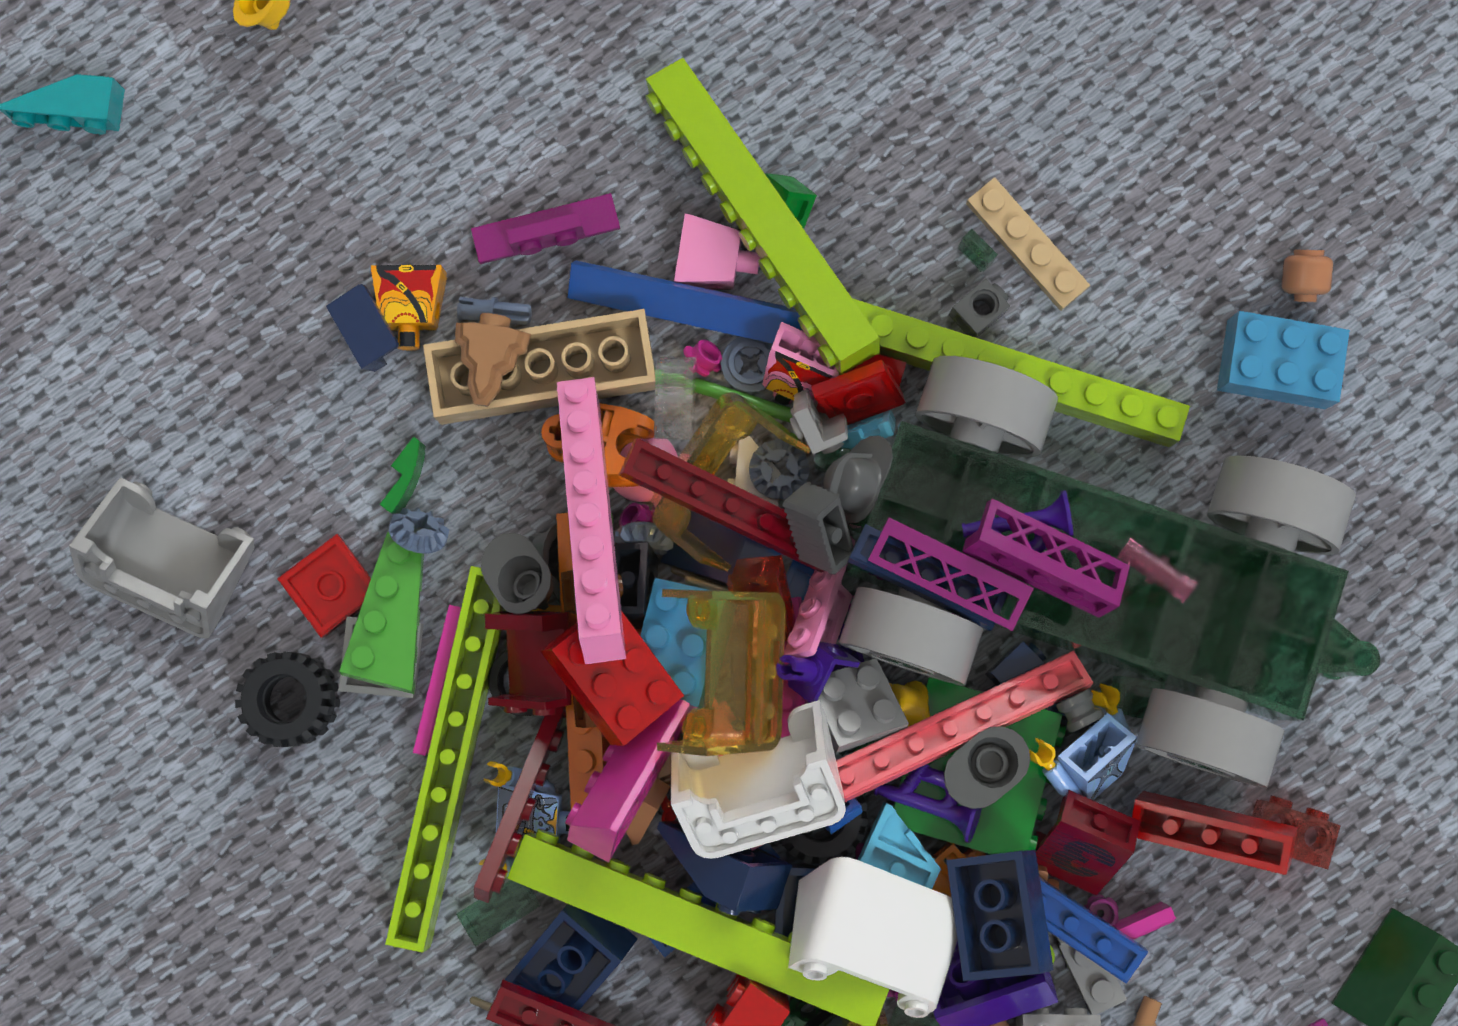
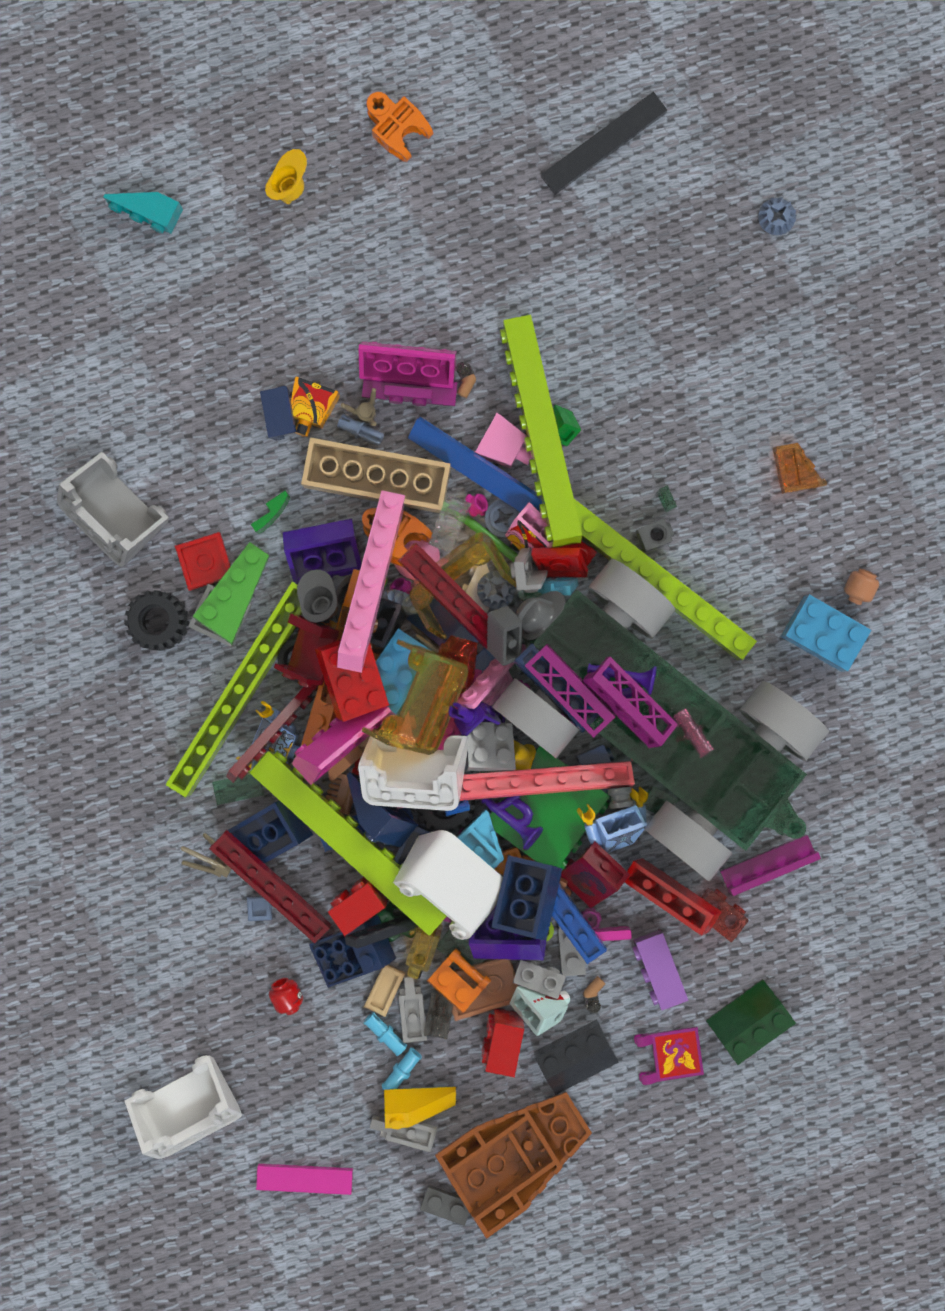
camera: 25 degrees right, 5 degrees up
(428, 540) = (270, 556): sand blue gear -> none
(437, 681) = (247, 644): dark pink tile -> none
(489, 353) = (347, 458): medium nougat rock -> none
(491, 280) = (365, 411): none -> dark tan plant
(497, 500) = (322, 547): none -> dark purple slope
(528, 192) = (407, 364): none -> dark pink slope
(623, 181) = (467, 377): none -> arm
(663, 859) = (344, 796): none -> nougat piece
(986, 767) = (551, 810): dark grey piece -> none
(1027, 244) = (699, 505): tan plate -> none
(1146, 143) = (795, 469): none -> clear orange wing
(1236, 952) = (659, 970): none -> medium lavender brick
(1338, 726) = (769, 865): none -> magenta fence

